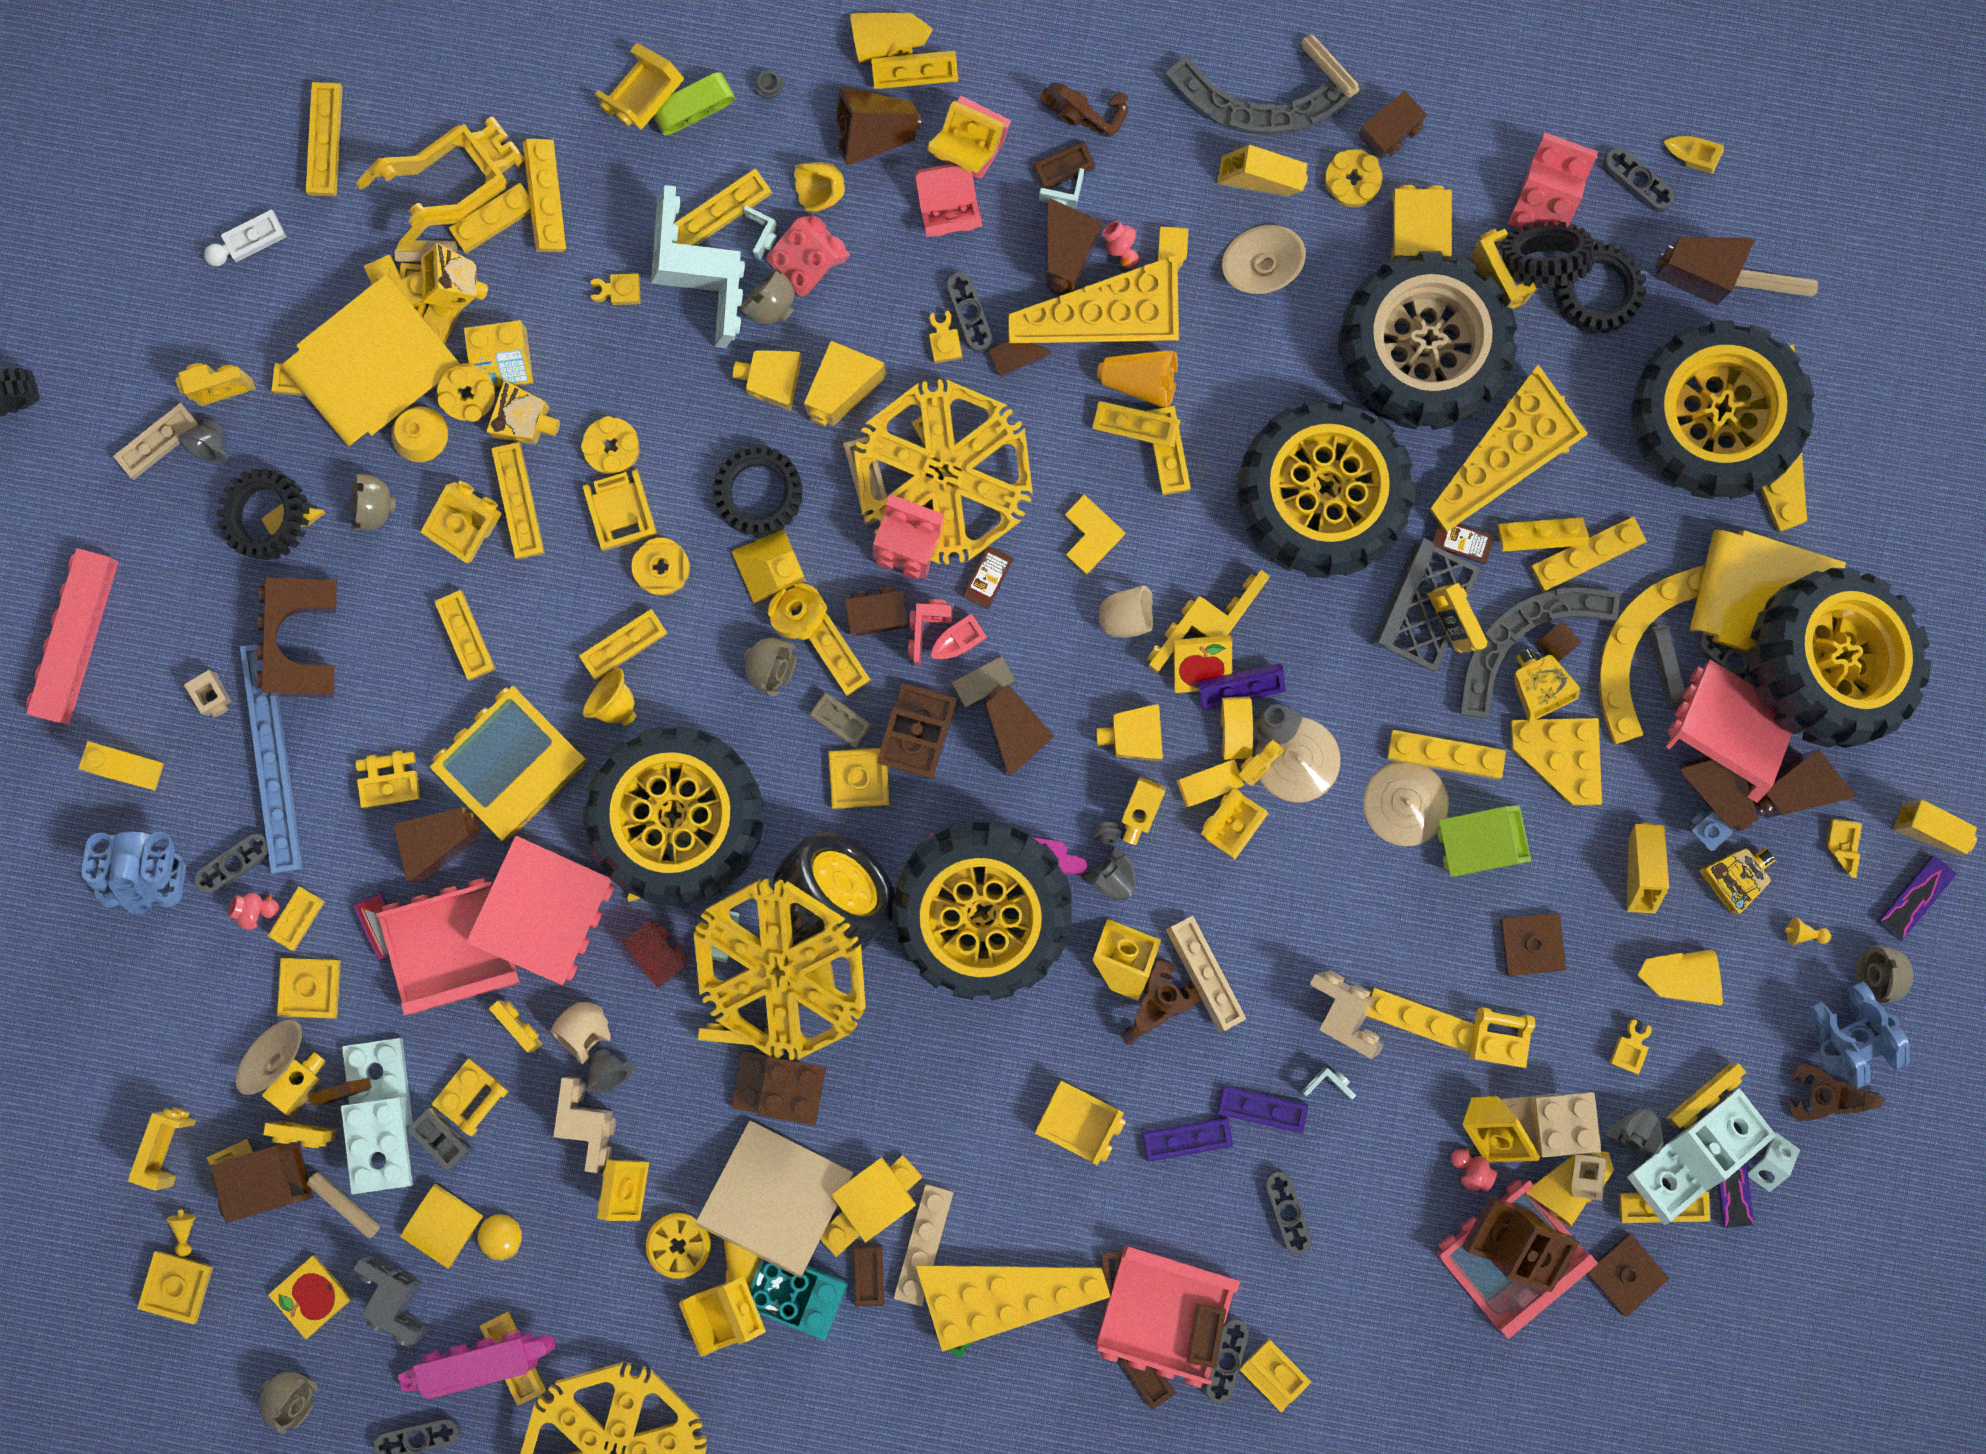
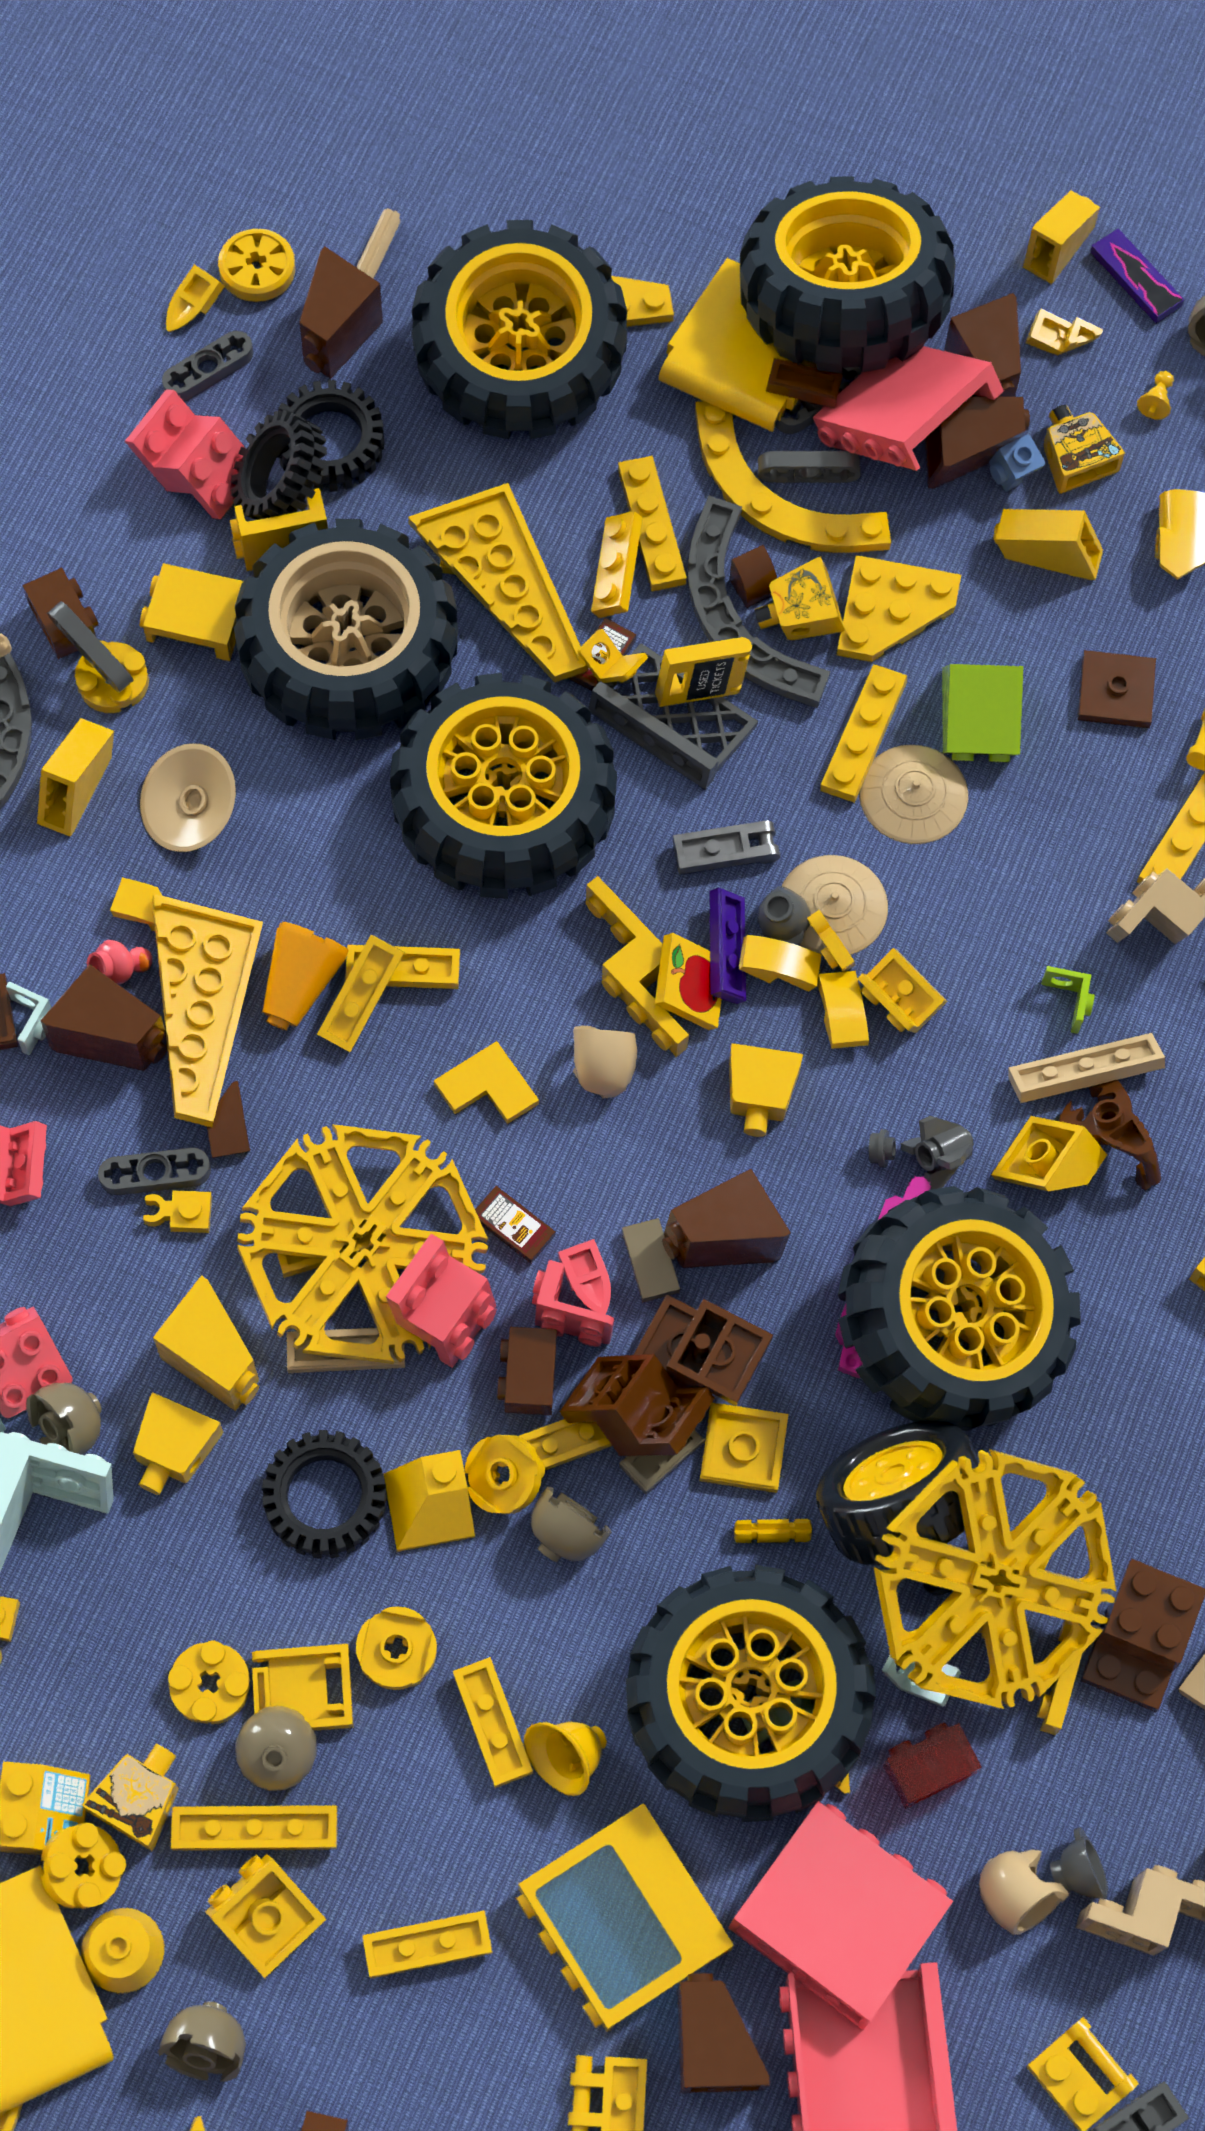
camera: 80 degrees left, 15 degrees down
(522, 1032) = (981, 1988): yellow plate -> none
(571, 501) = (276, 1748): none -> dark tan cylinder
(801, 810) = (772, 1530): none -> yellow axle
(863, 693) = (637, 1405): none -> reddish brown bracket
(1145, 796) = (860, 1094): yellow torso -> none
(1260, 963) = (1079, 983): none -> lime bracket
(1322, 668) = (725, 847): none -> flat silver plate
(1363, 153) = (90, 646): none -> dark grey beam
(1451, 554) = (616, 666): none -> yellow bracket
(1735, 645) = (804, 383): none -> reddish brown tile
(1746, 178) = (241, 276): none -> yellow wheel

